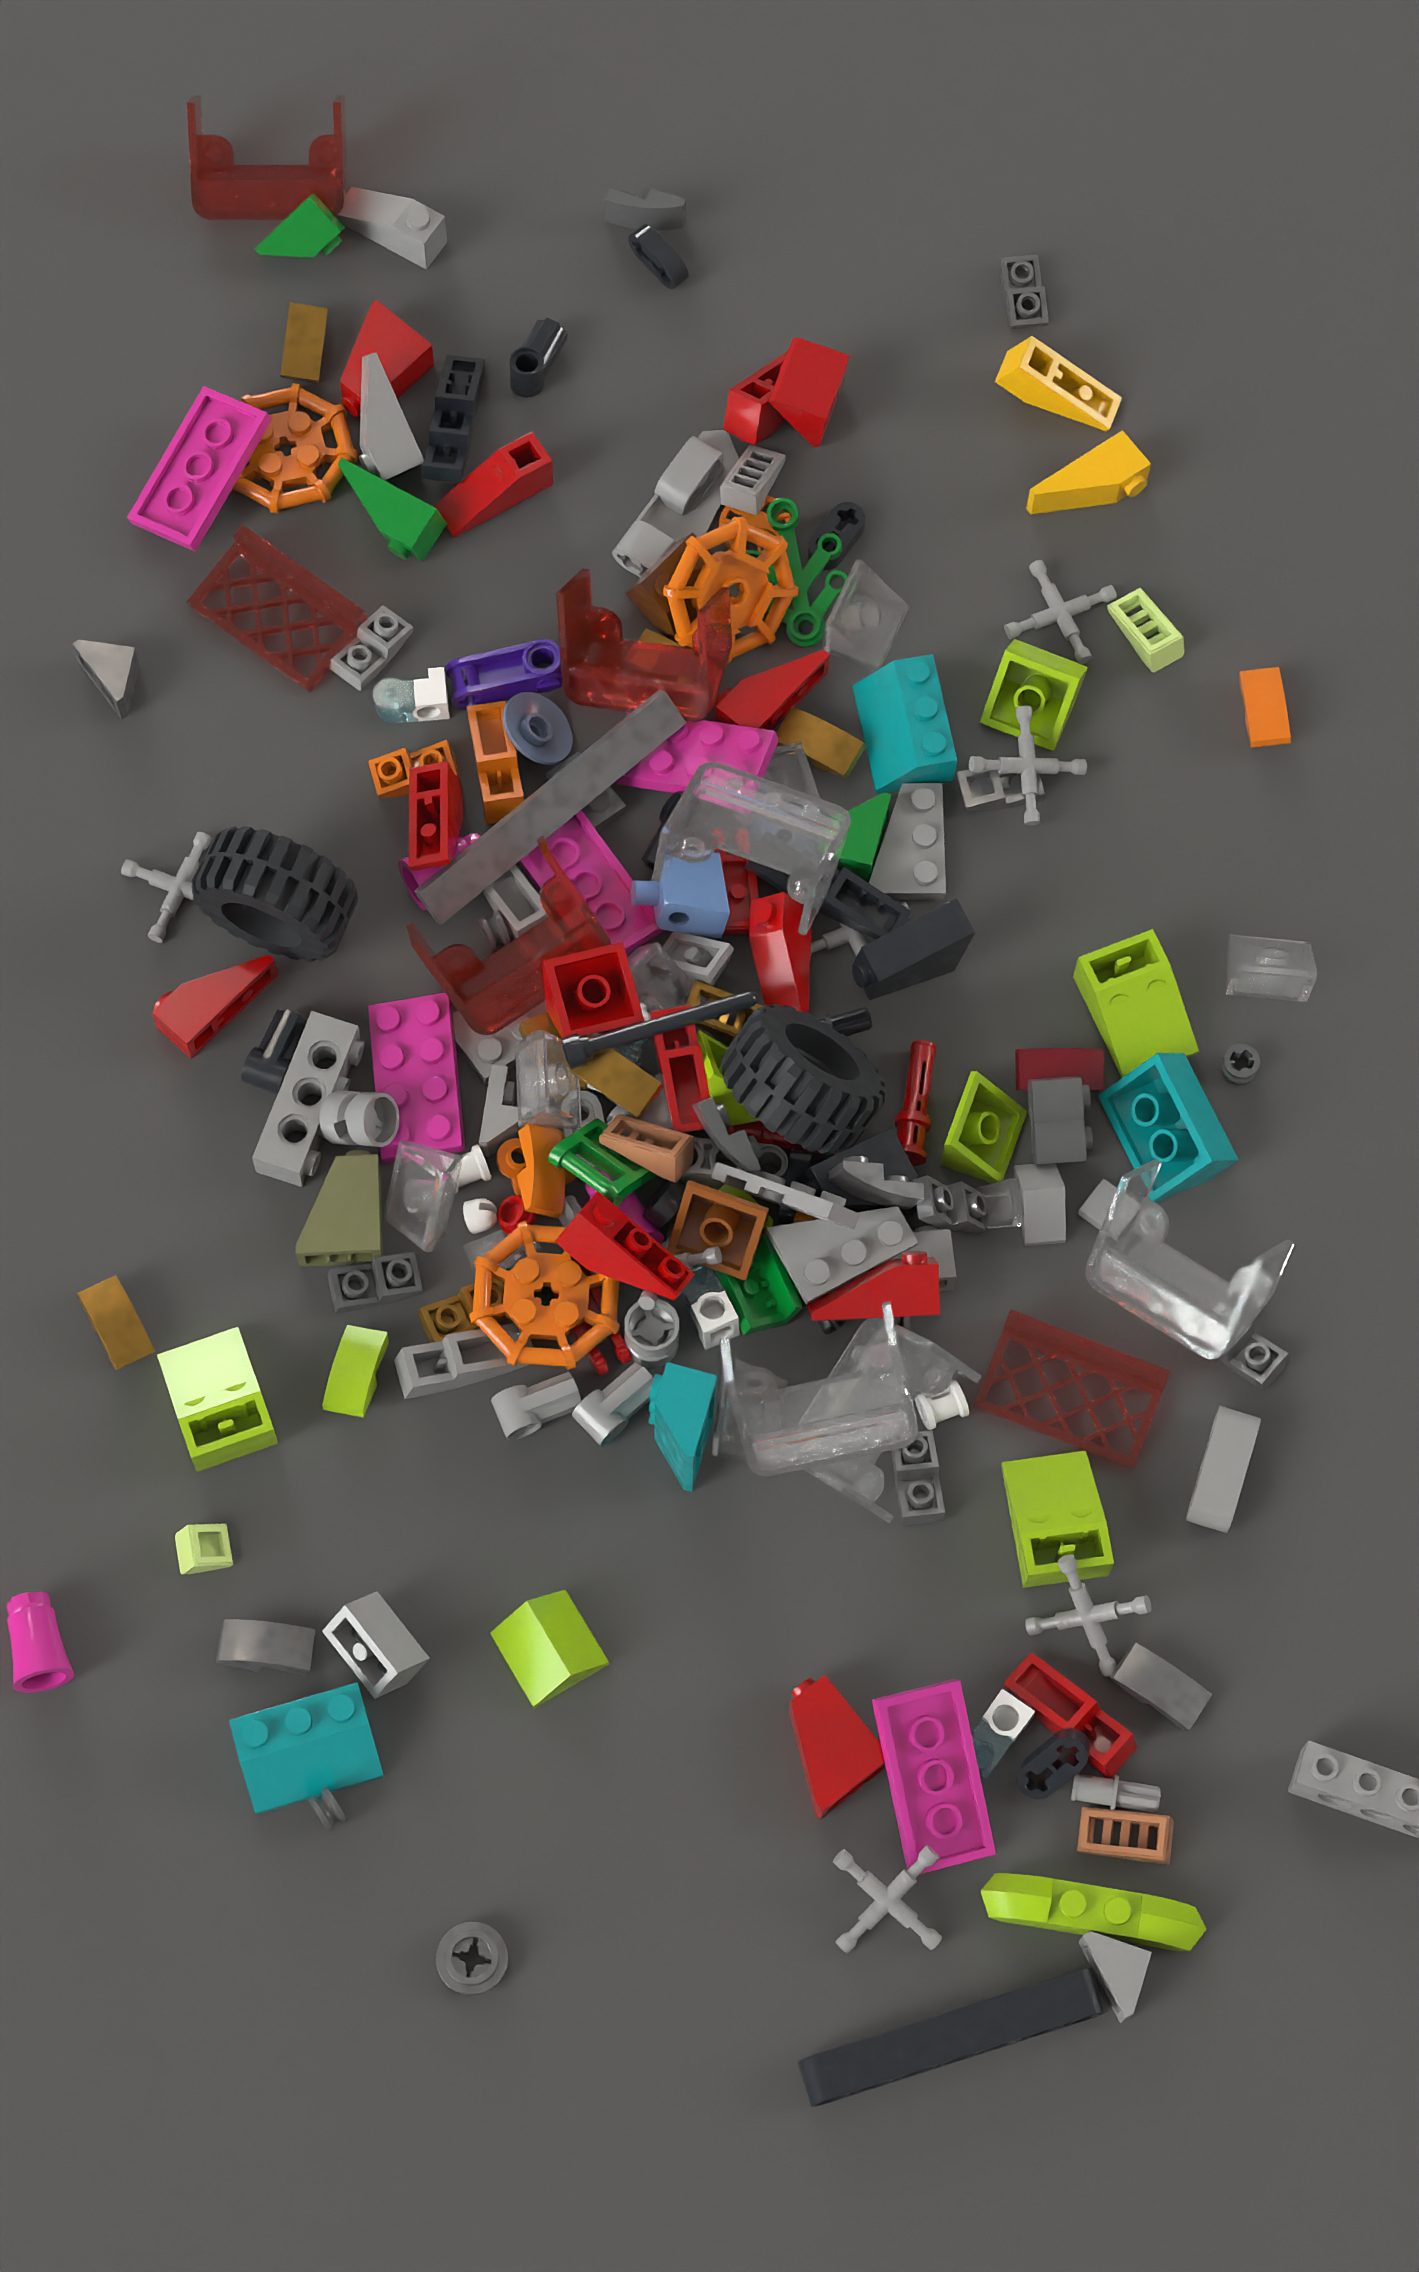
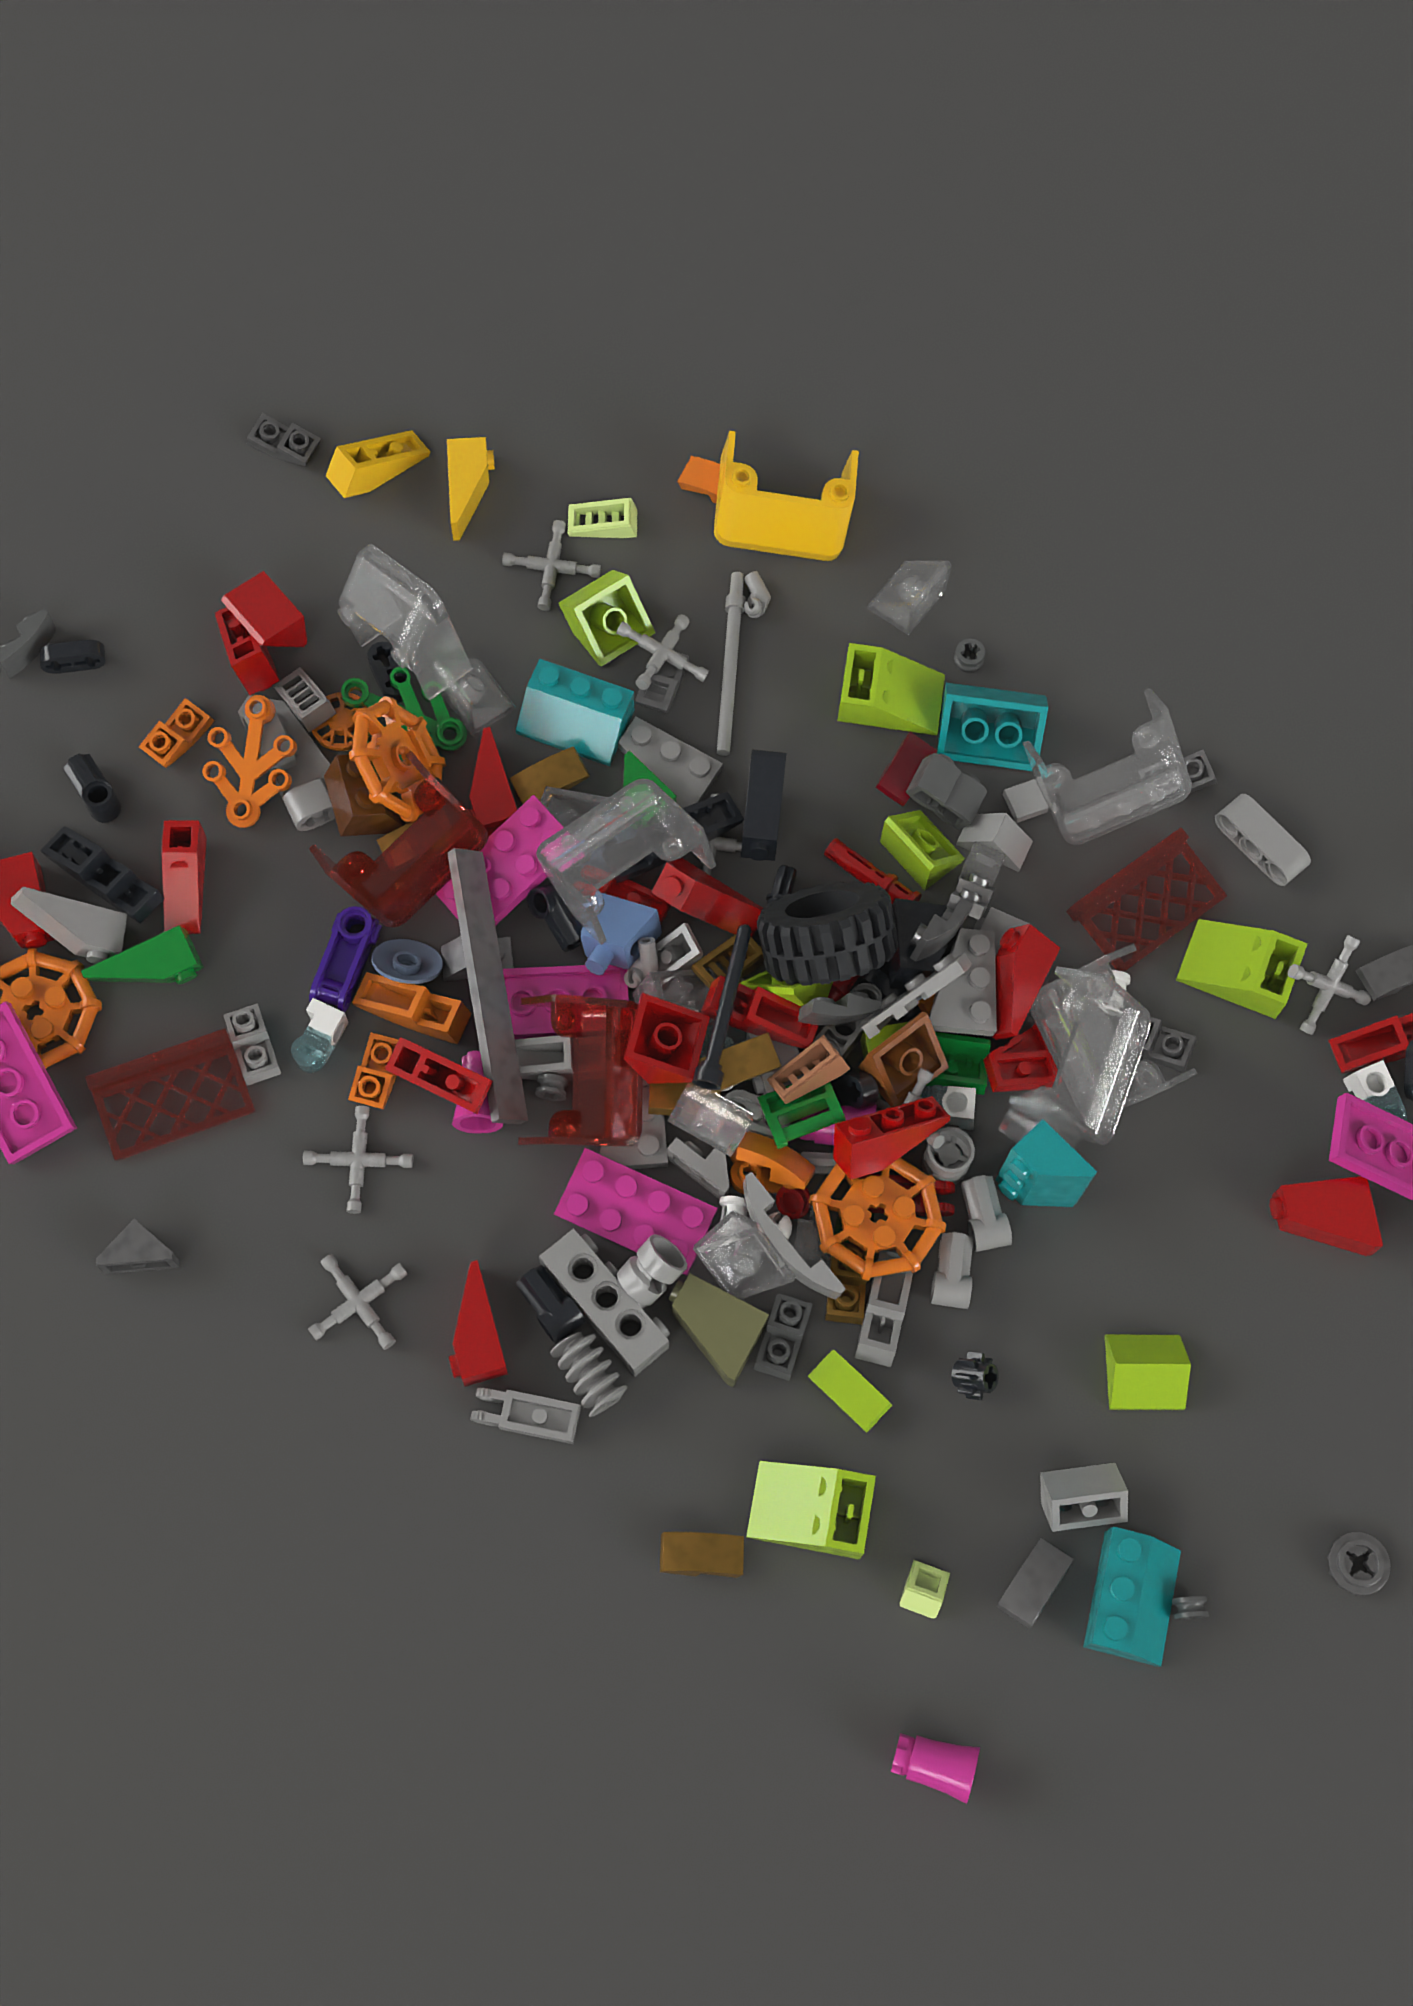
camera: 60 degrees left, 0 degrees up
(160, 1099) = (530, 1415): none -> light grey hinge
(228, 1122) = (588, 1372): none -> light grey piece
(275, 893) = (433, 1224): black tyre -> none
(318, 805) = (357, 1159): none -> light grey piece
(439, 1479) = (975, 1375): none -> black gear
(481, 1176) = (819, 1276): none -> light grey slope
(640, 395) = (177, 735): none -> orange slope
(644, 470) = (251, 766): none -> orange plant
(671, 939) = (644, 964): none -> light grey arm
(797, 1350) = (1021, 1063): none -> red wing
(873, 488) = (407, 612): none -> clear windscreen
(1134, 807) = (734, 607): none -> light grey bar
(1163, 824) = (759, 597): none -> light grey arm
(1255, 799) = (781, 521): none -> yellow windscreen

